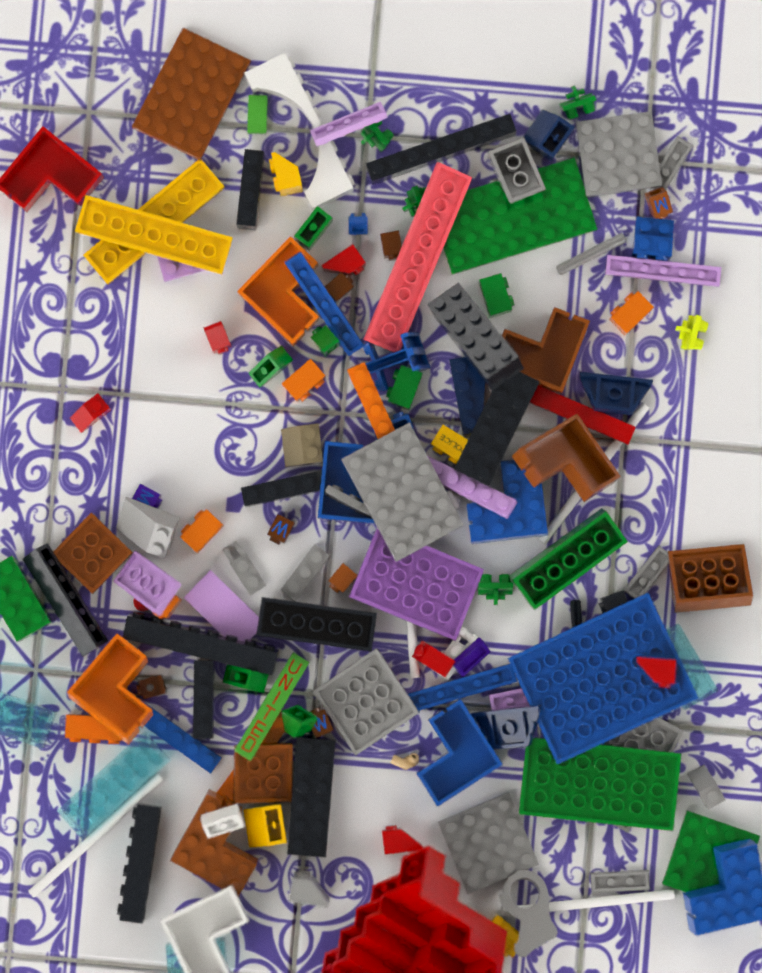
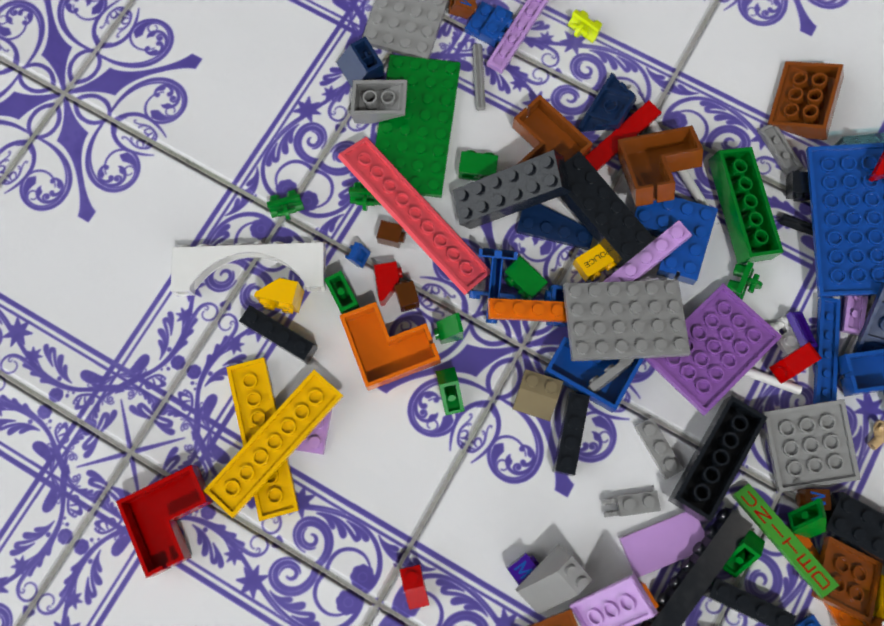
camera: 60 degrees left, 10 degrees down
(191, 94) = (165, 349): dark orange plate -> none
(201, 530) = (578, 529): orange brick -> none
(217, 338) = (400, 427): slope -> none
(257, 114) = (215, 299): bright green tile -> none
(280, 529) = (609, 452): reddish brown brick -> none
(304, 380) = (477, 366): orange brick -> none
(324, 303) = (413, 313): blue plate -> none
(342, 579) = (680, 415): dark orange brick -> none
(348, 124) = (264, 218): lavender plate -> none
(441, 149) = (327, 157): black brick -> none
(585, 101) = (347, 25): green hips -> none
(631, 312) = (545, 65): orange brick -> none

